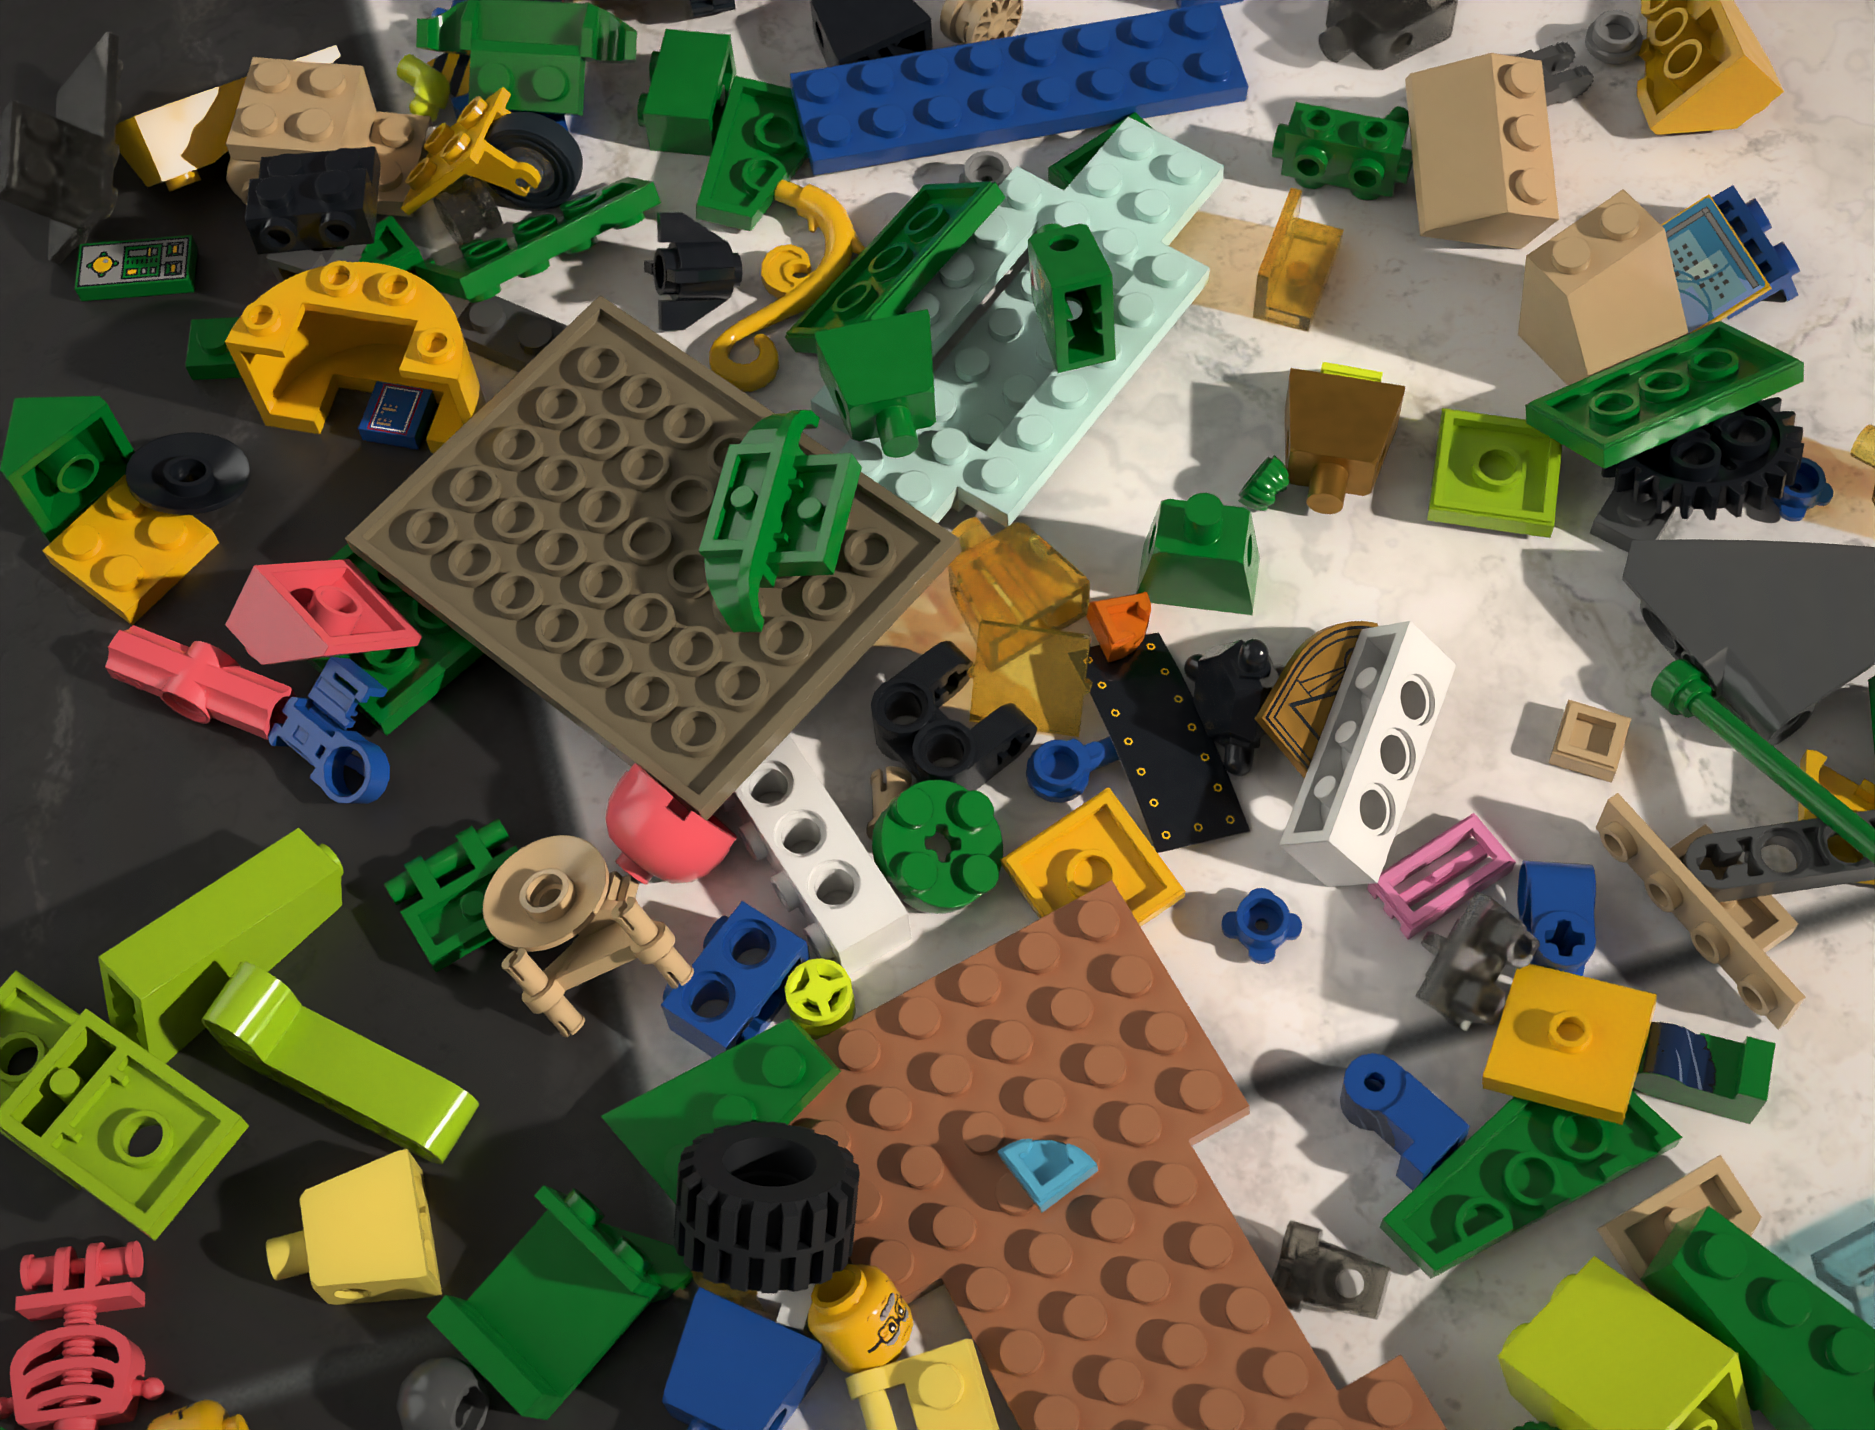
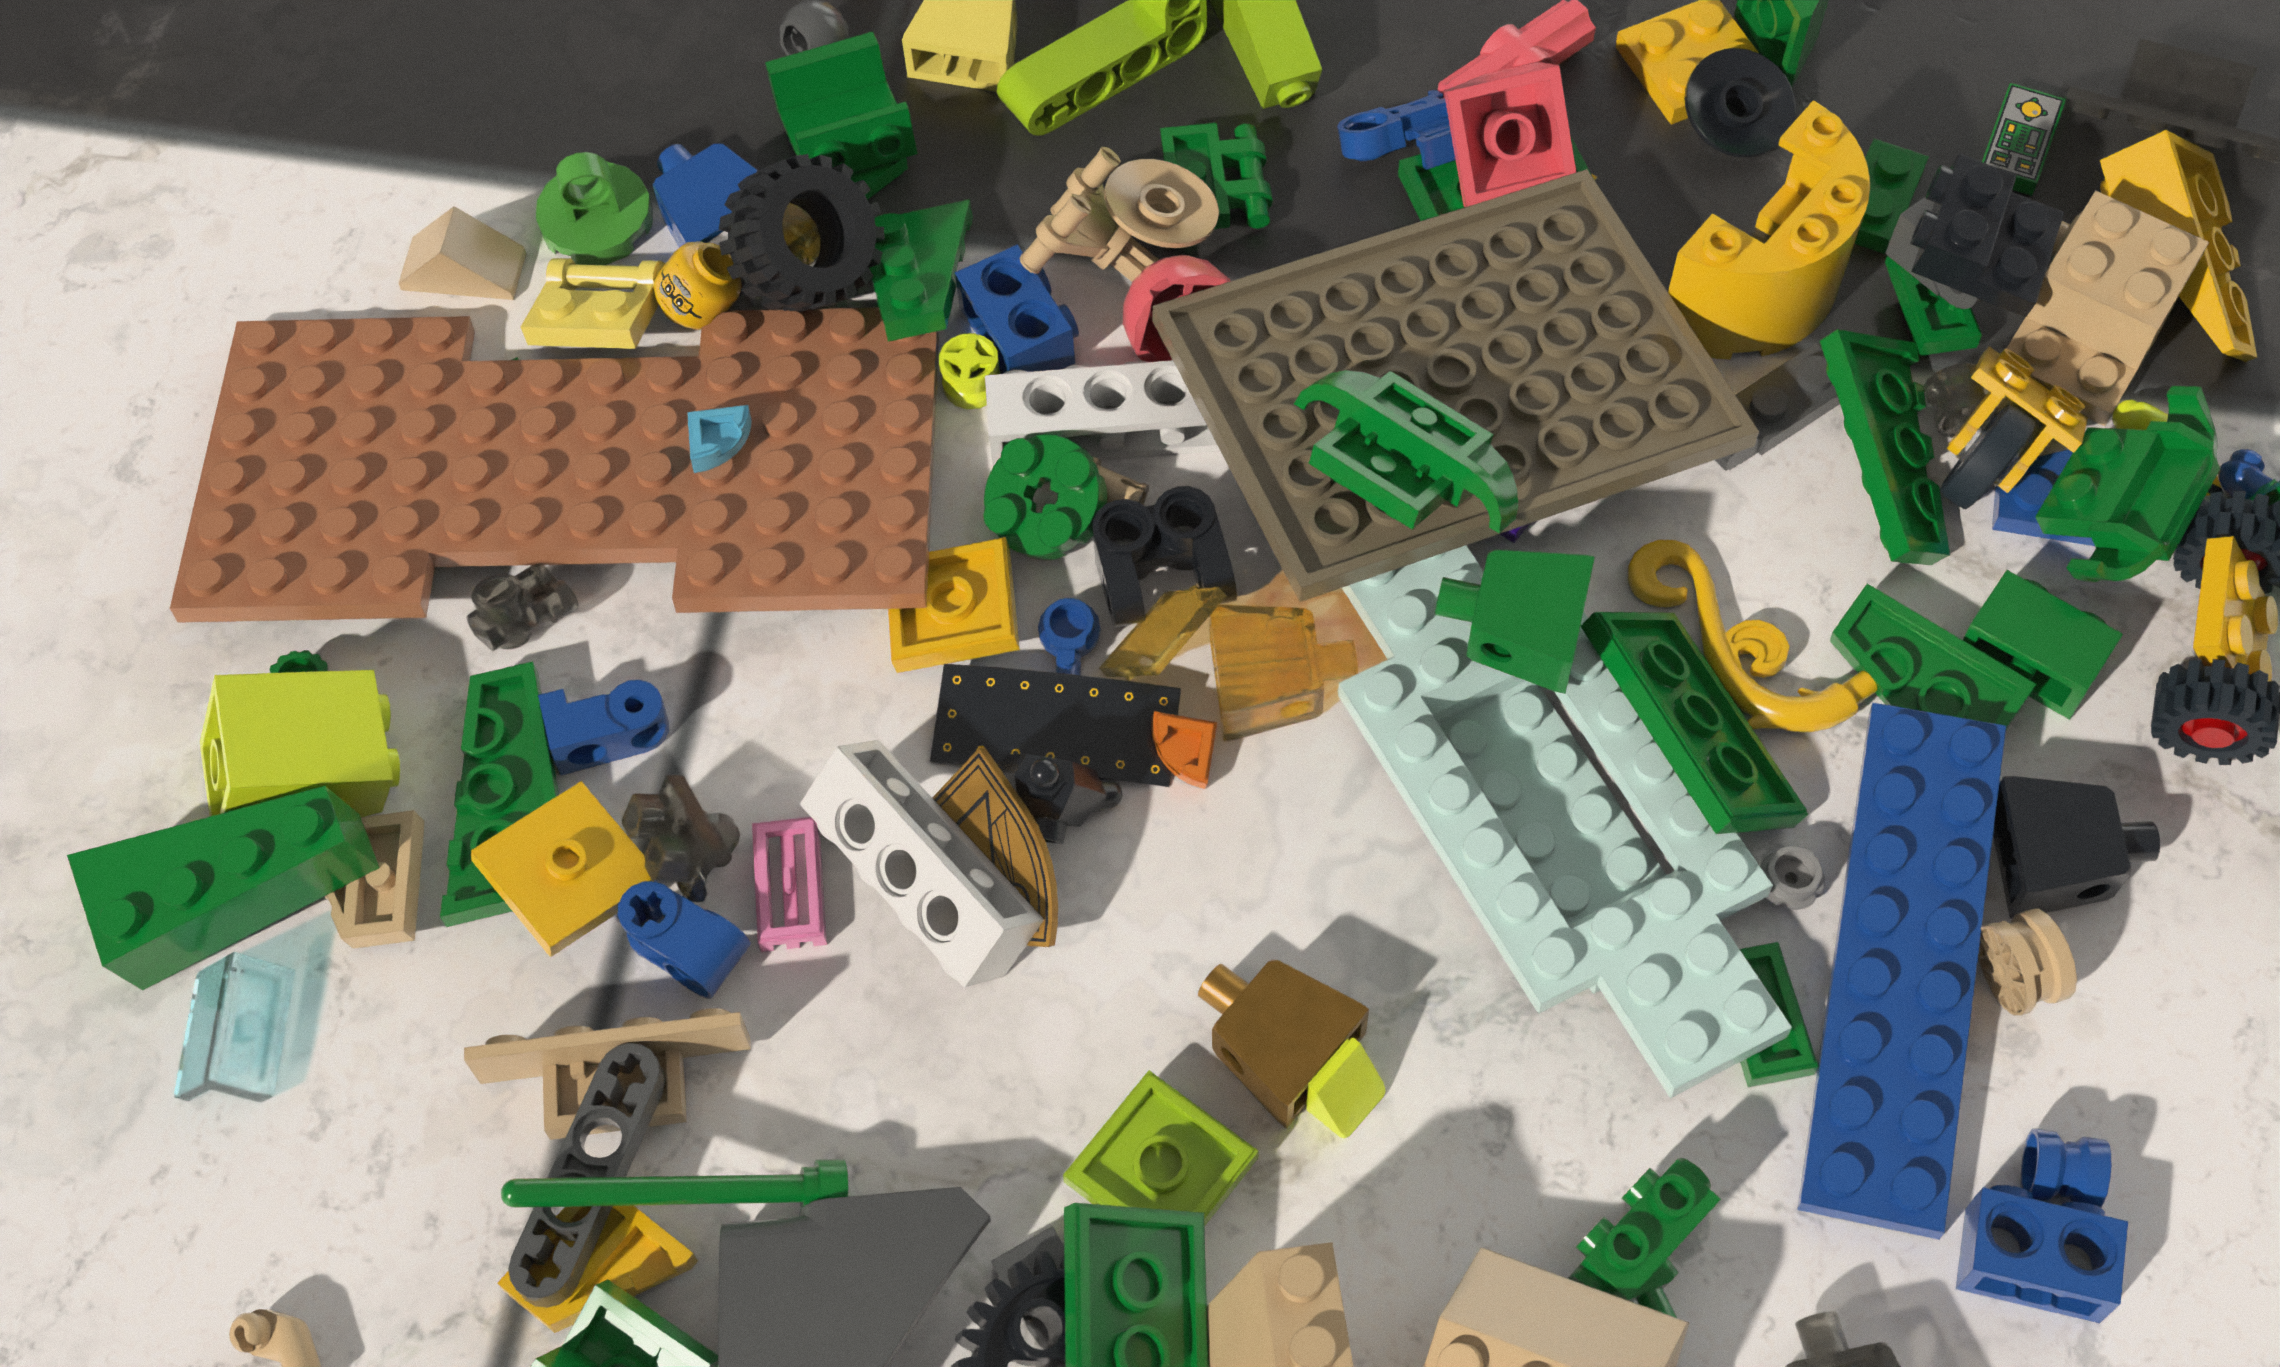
camera: 115 degrees right, 0 degrees up
(693, 270) = (1782, 548): black brick -> none
(1066, 268) = (1540, 806): green torso -> none
(1201, 556) = (1211, 821): green torso -> none
(1261, 906) = (833, 699): blue plate -> none
(1265, 484) = (1264, 940): green piece -> none
(1295, 267) = (1522, 1116): clear yellow panel -> none
(1590, 740) = (835, 1086): tan tile -> none
(1706, 1071) = (483, 975): green leg -> none

